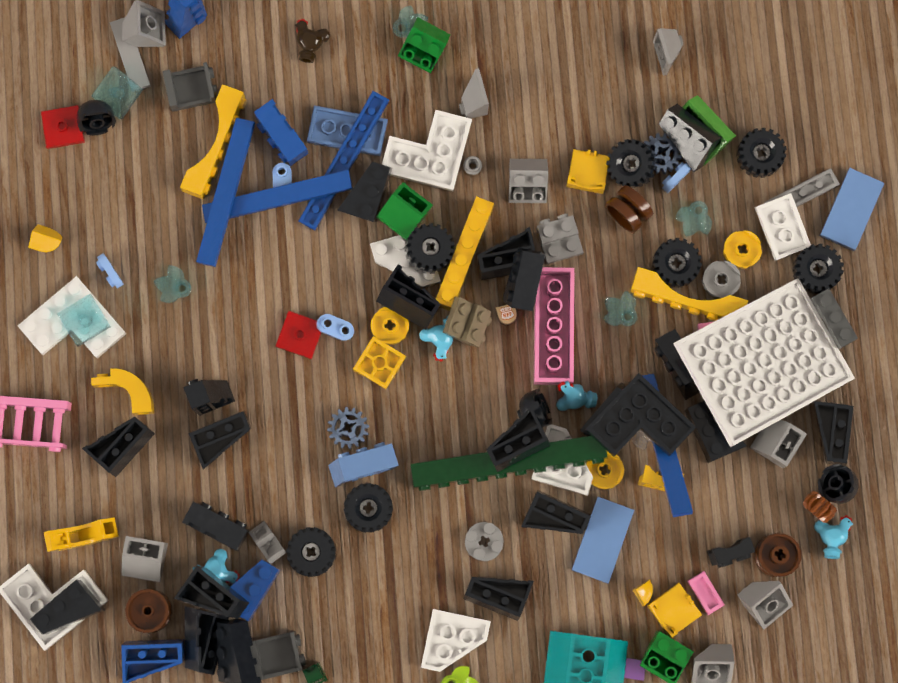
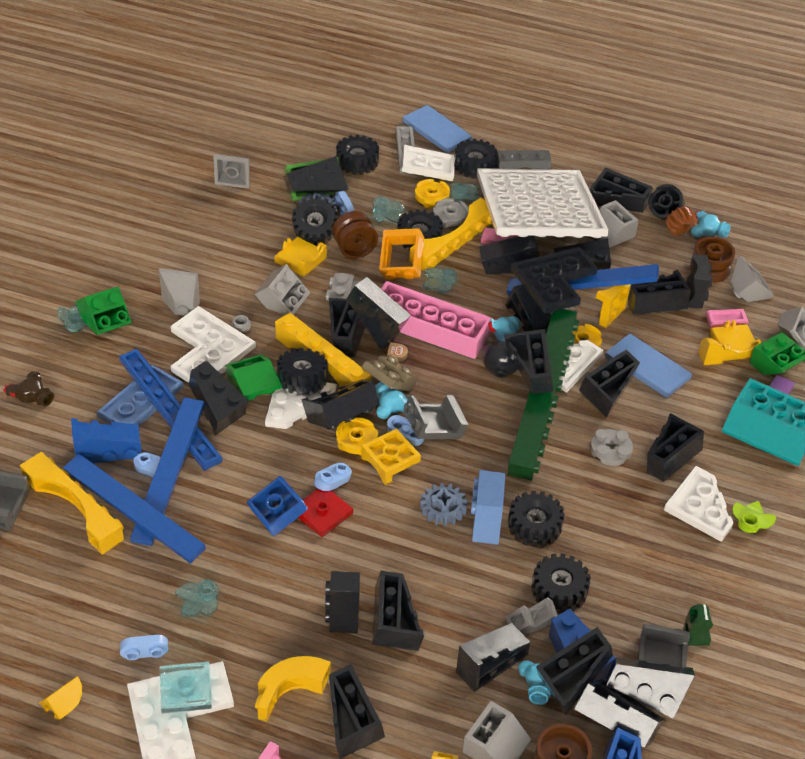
camera: 65 degrees left, 35 degrees down
(279, 289) = (277, 493): none -> blue brick
(416, 363) = (405, 429): none -> light blue plate
(434, 381) = (436, 420): none -> dark grey panel
(631, 244) = (401, 237): none -> light orange window
(702, 525) = (664, 295): none -> black wedge
(766, 280) = (461, 192): none -> clear light blue plate

